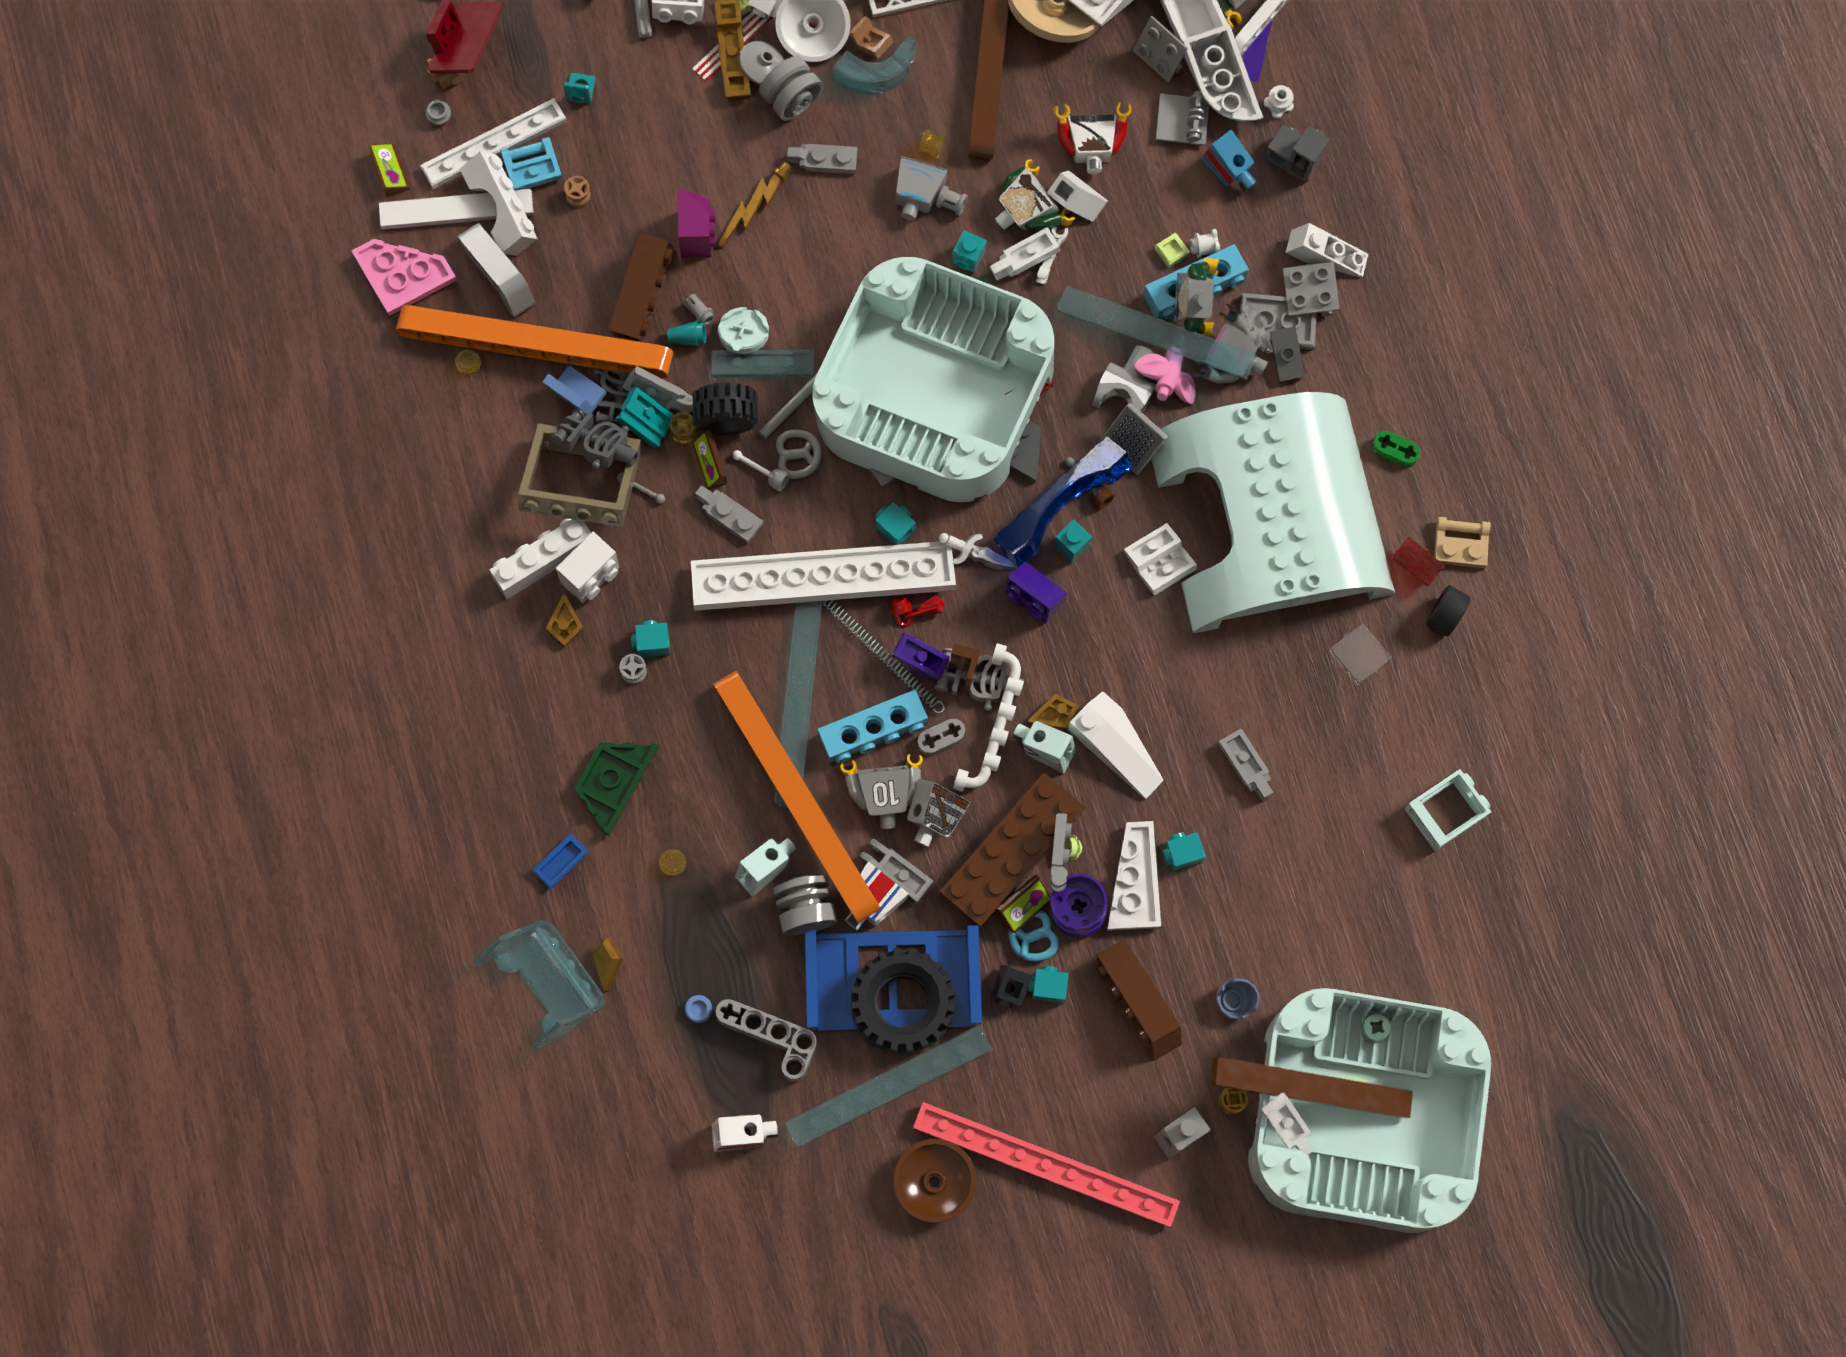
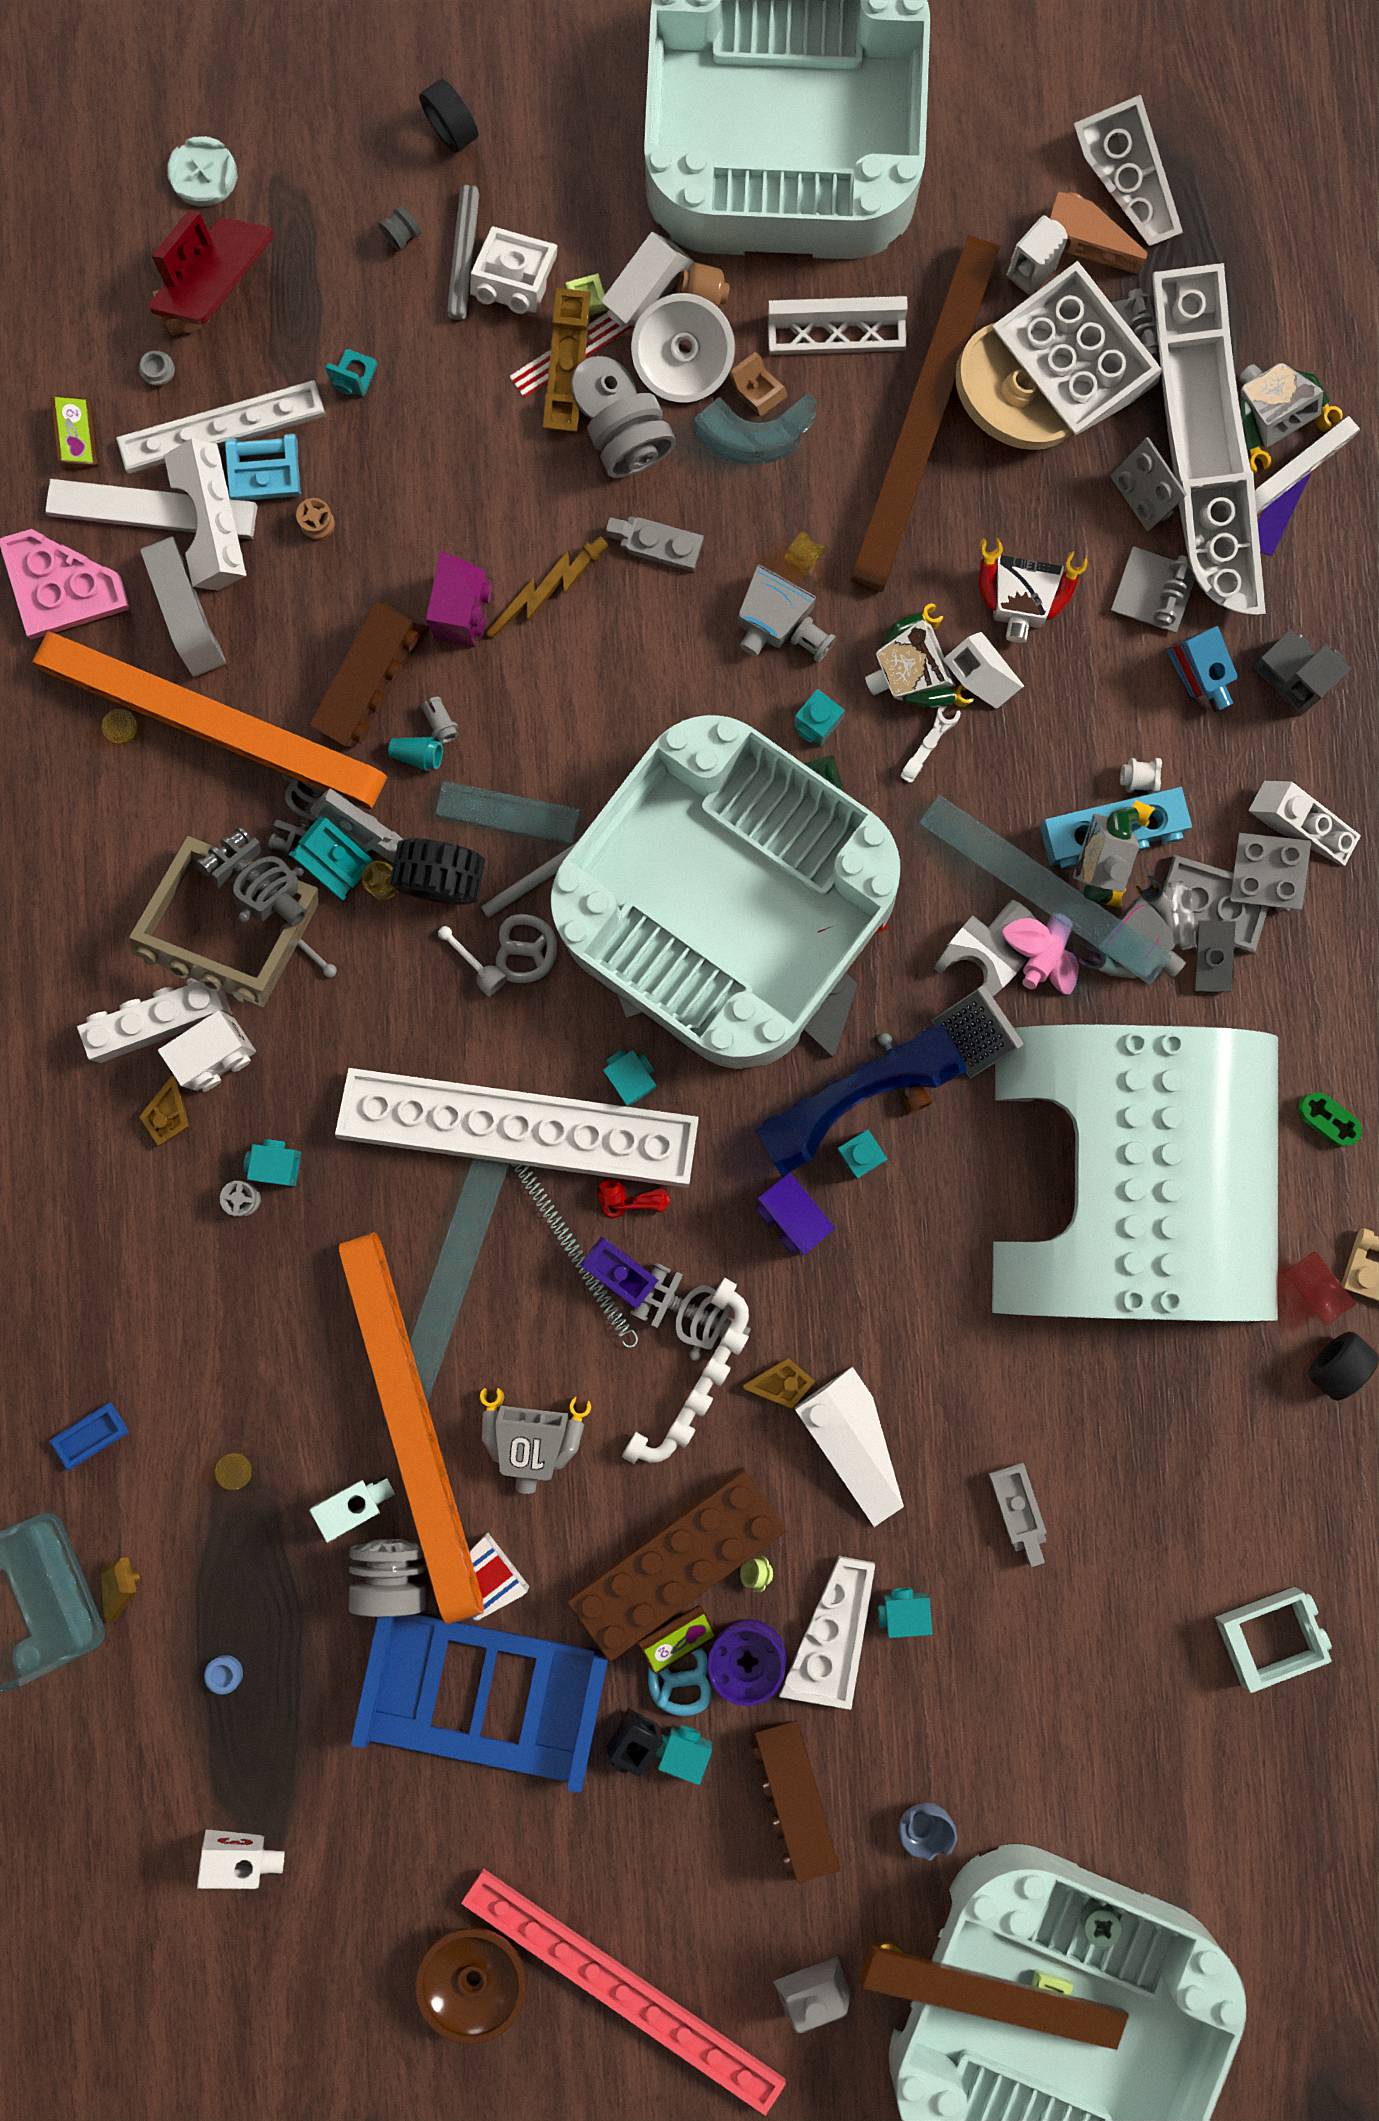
camera: 20 degrees right, 10 degrees up
(576, 389) = (249, 799): medium blue panel -> none
(612, 780) = (180, 1343): dark green wing -> none
(710, 460) = (407, 933): slope -> none
(729, 513) = (416, 1012): light grey hinge -> none
(743, 330) = (491, 762): light aqua tile -> none
(763, 1033) = (297, 1733): light grey beam -> none
(856, 724) = (478, 1351): medium azure brick -> none
(888, 1086) = (443, 1835): clear light blue tile -> none
(899, 871) = (523, 1553): light grey hinge -> none
(914, 967) = (477, 1786): black tyre -> none
(935, 811) = (589, 1488): torso -> none
(944, 742) = (624, 1390): light grey beam -> none
(965, 659) = (677, 1297): reddish brown panel -> none
(981, 554) = (738, 1145): piece -> none
(1025, 254) = (894, 738): white hinge -> none
(1047, 745) = (768, 1440): light aqua torso -> none
(1060, 855) = (735, 1600): light grey hinge -> none
(1160, 559) = (973, 1202): white slope -> none
(1172, 250) = (1094, 772): yellowish green tile -> none
(1279, 101) = (1288, 598): white brick -> none
(1288, 1123) = (949, 2039): white hinge -> none
(1360, 653) = (1210, 1392): clear piece -> none

